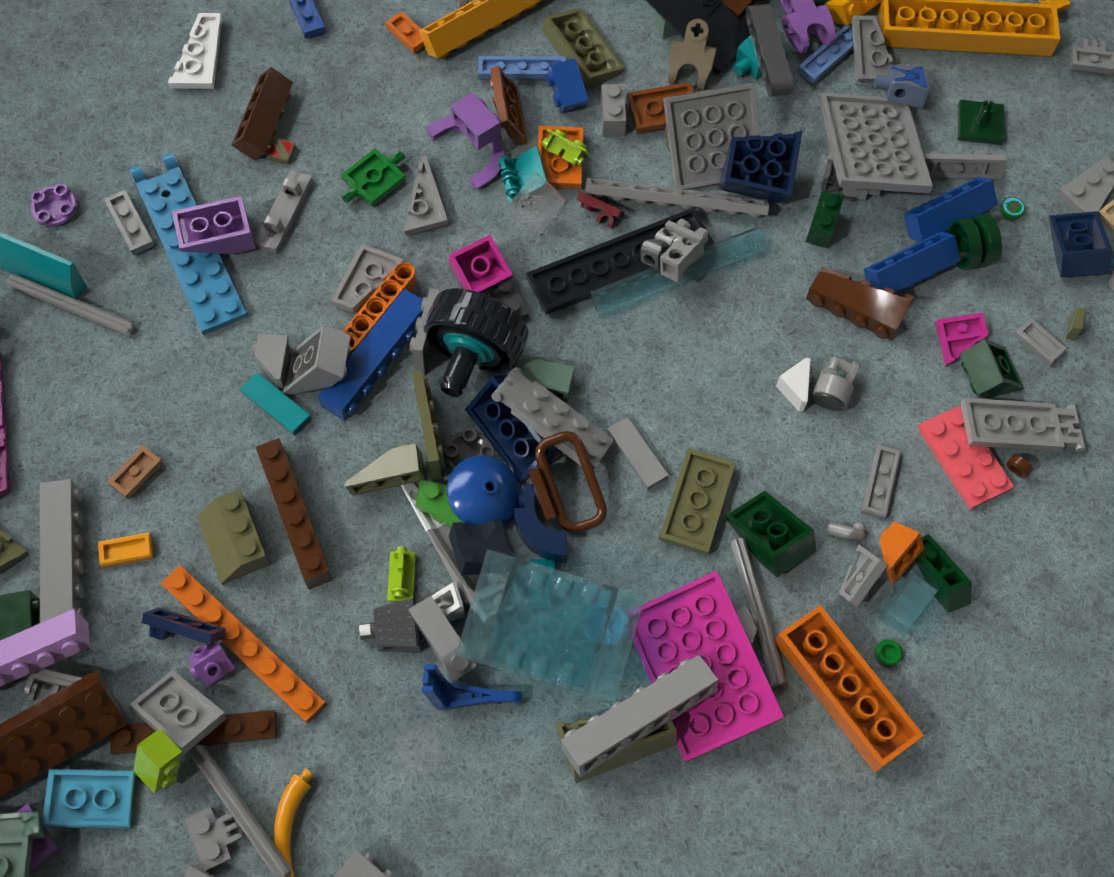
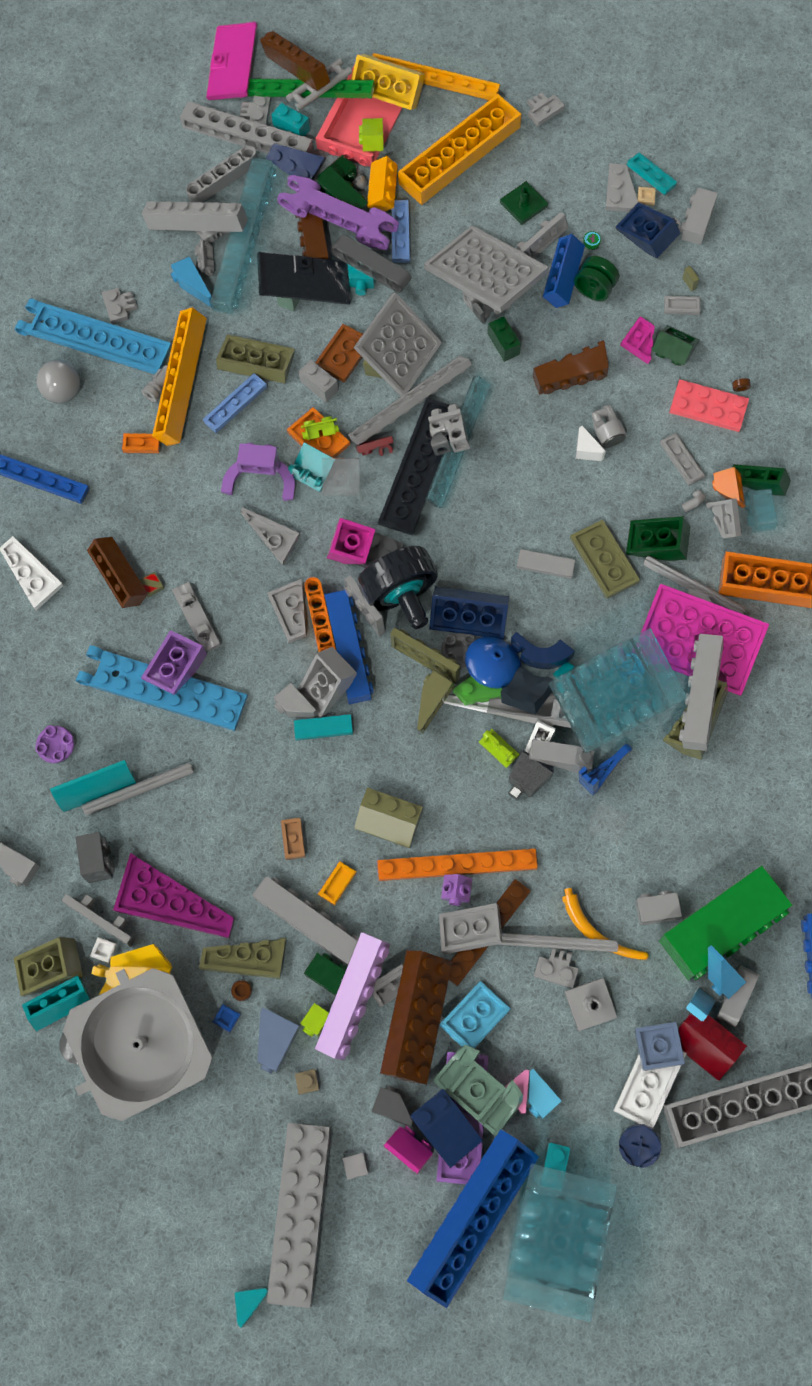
camera: 40 degrees left, 5 degrees up
(129, 222) = (114, 710): light grey plate -> none
(157, 761) = (492, 960): lime brick -> none
(164, 621) = (404, 895): dark blue hinge -> none
(294, 514) = (406, 772): reddish brown brick -> none
(373, 177) = (226, 548): green plate -> none
(508, 105) = (256, 432): dark orange plate -> none
(547, 490) = (526, 628): reddish brown bar -> none
(550, 415) = (489, 587): light grey hinge -> none
(553, 376) = (456, 569): sand green brick -> none
(567, 86) = (277, 390): blue brick -> none
(692, 52) = (328, 303): dark tan piece -> none
(762, 166) = (442, 338): dark blue wedge -> none
(869, 49) = (424, 215): light grey wing -> none
(888, 653) = (776, 545): green tile -> none
(904, 85) = (464, 217): sand blue torso -> none
(914, 263) = (577, 321): blue brick -> none
(1021, 425) = (720, 361): light grey hinge -> none

